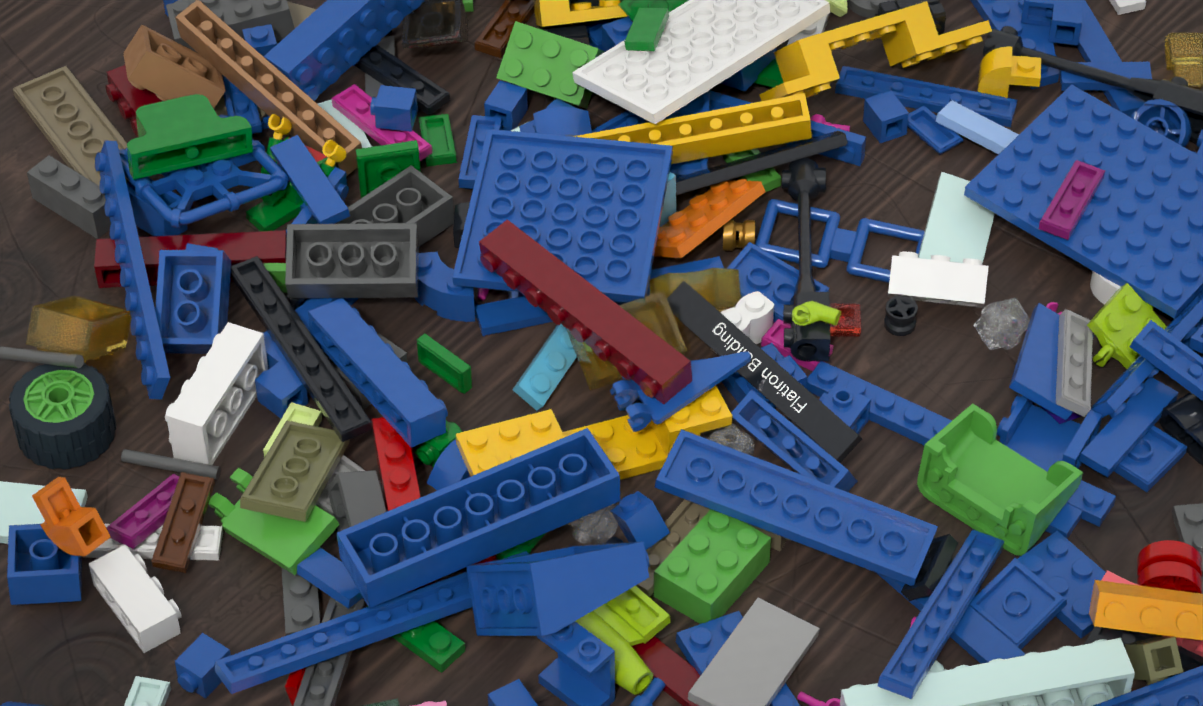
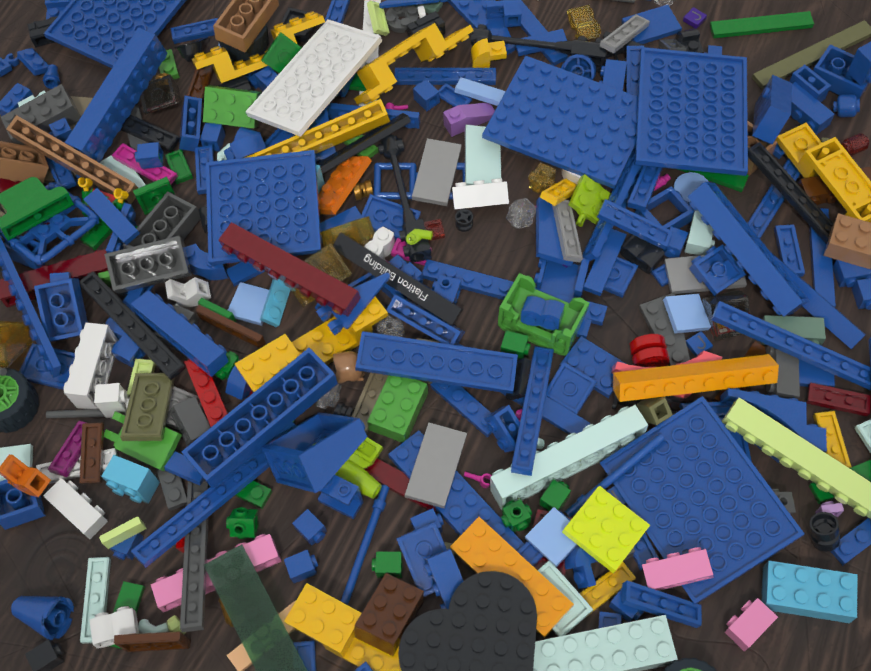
camera: 10 degrees left, 15 degrees up
(132, 396) = (35, 372): none -> blue tile
(206, 640) = (122, 532): none -> yellowish green tile
(236, 445) = (111, 399): none -> white brick
(238, 571) = (130, 479): none -> medium azure brick
(404, 324) = (187, 294): none -> white brick
(405, 678) = (243, 523): none -> green brick
(458, 387) = (230, 327): none -> reddish brown tile
(474, 77) = (190, 123): none -> blue brick
(500, 364) = (248, 303): none -> light blue tile
(640, 520) = (351, 390): blue brick -> none
(642, 477) = (345, 367): none -> medium nougat helmet
(646, 29) = (281, 74): green tile -> none
(830, 594) = (464, 404): none -> blue plate
(872, 233) = (436, 172): none -> light grey tile
(883, 627) = (504, 426): none -> blue brick
(932, 156) = (469, 114): none -> medium lavender slope
(942, 513) = (515, 344): none -> green brick
(1001, 476) = (542, 313): none -> blue brick
(1053, 279) = (542, 178): none -> clear yellow brick
(1071, 199) = (543, 130): magenta tile -> none
(1073, 302) = (558, 192): none -> yellow tile

